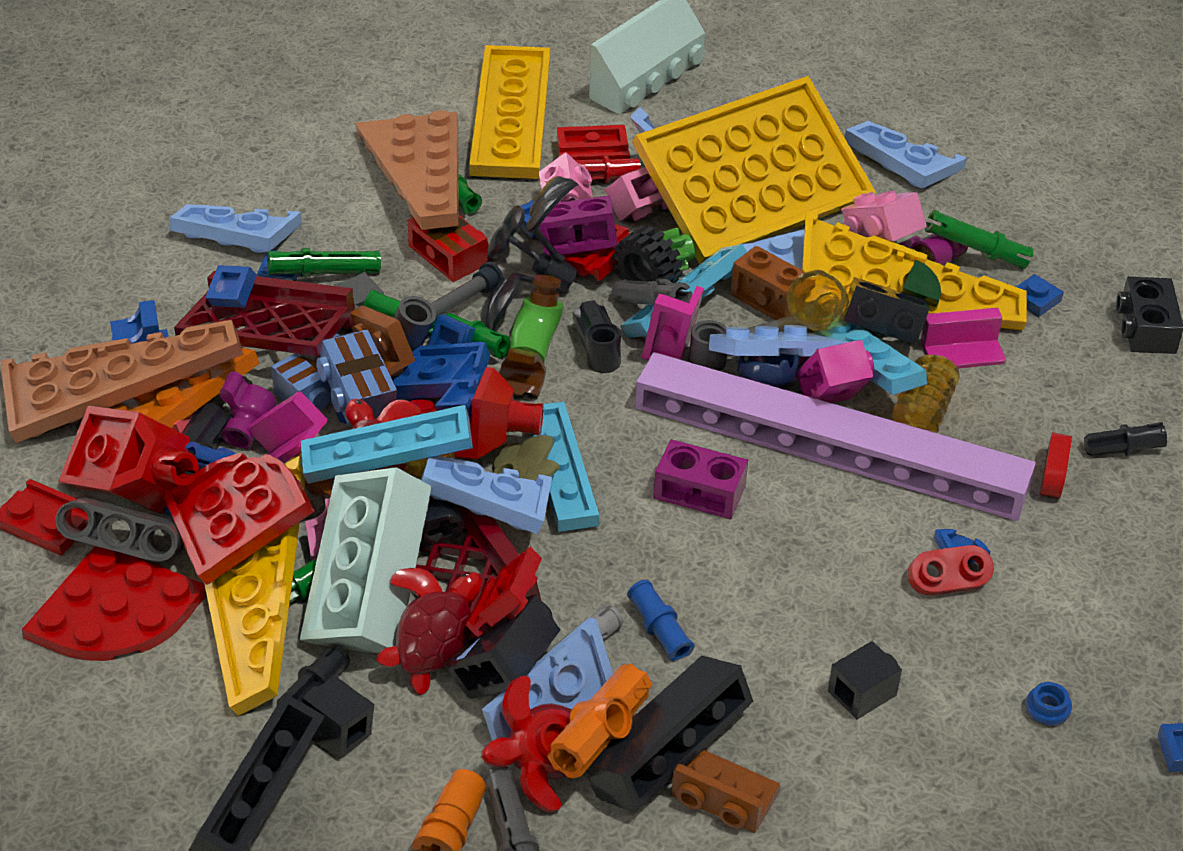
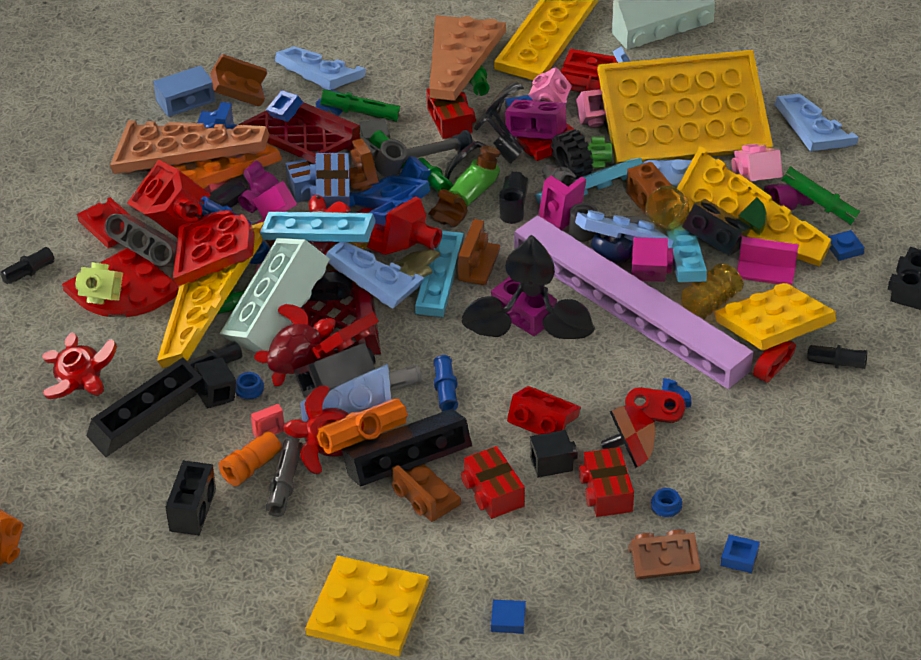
camera: 25 degrees right, 0 degrees up
(63, 300) = (184, 91): none -> medium blue brick
(106, 603) = (99, 283): none -> yellowish green brick
(117, 755) = (78, 367): none -> red animal
(138, 266) = (238, 80): none -> dark orange bracket
(390, 696) = (249, 385): none -> blue plate
(447, 754) = (268, 420): none -> coral tile
(601, 428) = (477, 255): none -> dark orange bracket
(730, 421) = (534, 269): none -> black plant
(813, 625) = (541, 411): none -> red bracket
(814, 746) = (493, 482): none -> red brick
(948, 619) = (635, 431): none -> shield
(962, 698) = (607, 482): none -> red brick
(1025, 408) = (775, 316): none -> yellow plate
(1099, 782) = (664, 554): none -> dark orange bracket

